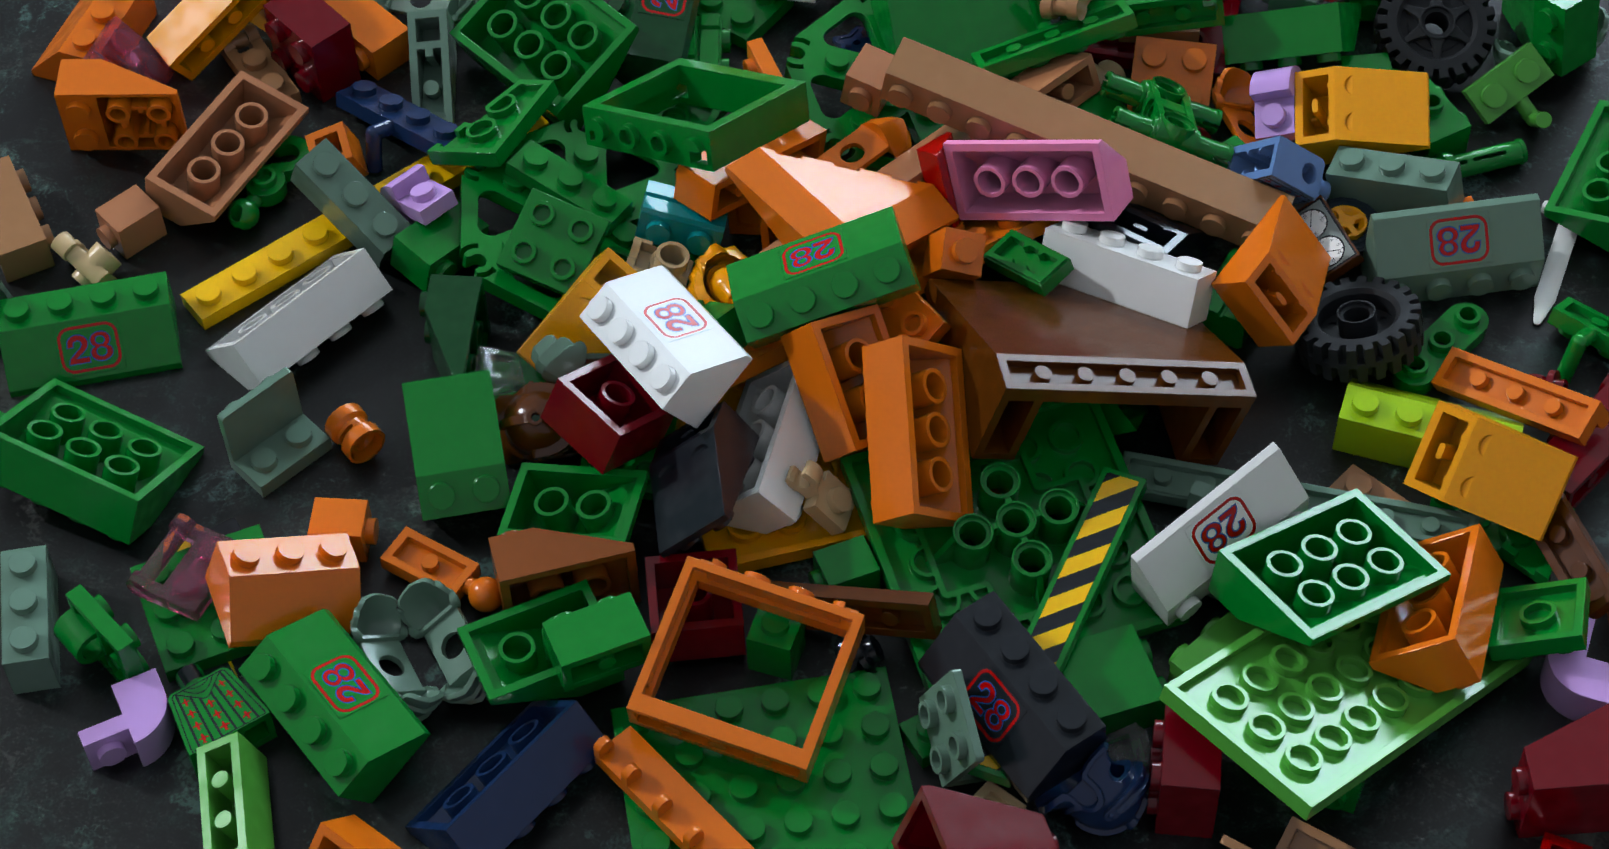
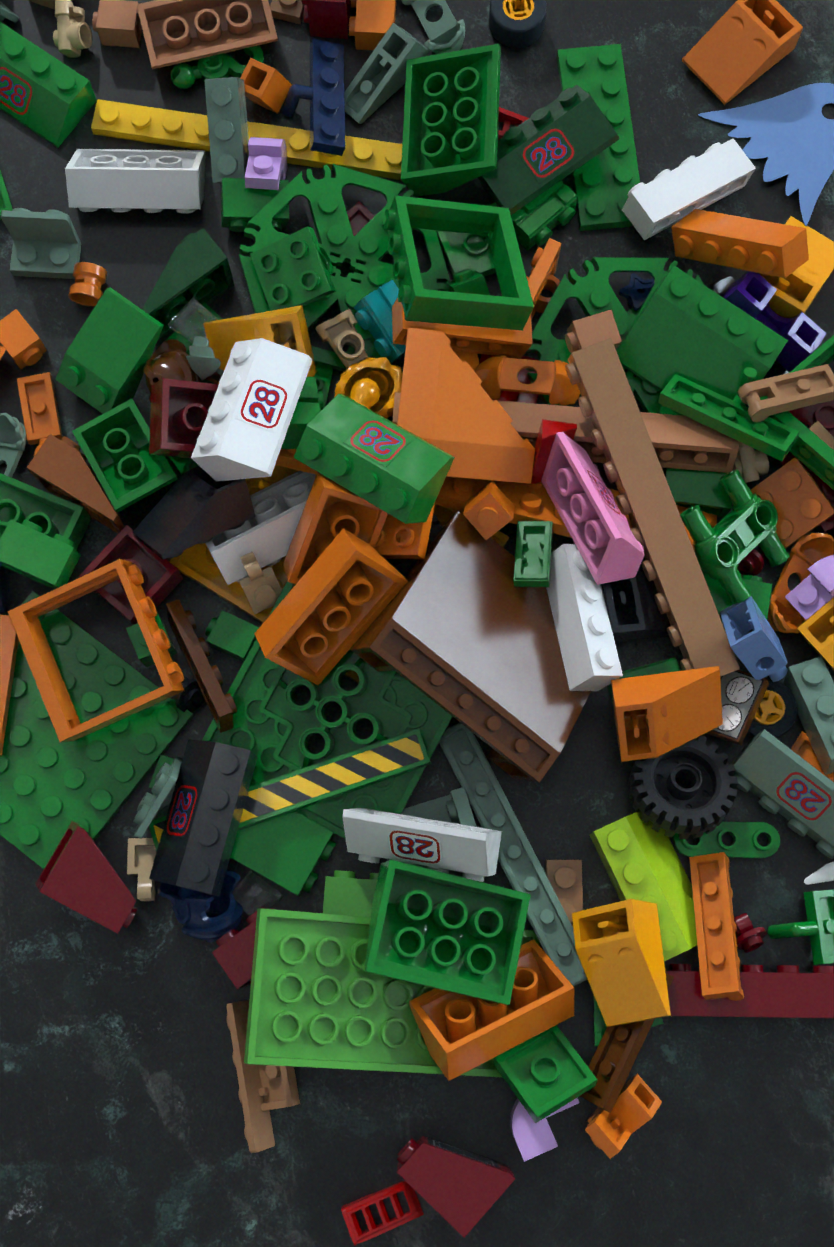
camera: 45 degrees right, 25 degrees up
(499, 132) = (347, 161): green wing -> none
(553, 175) = (350, 238): green plate -> none

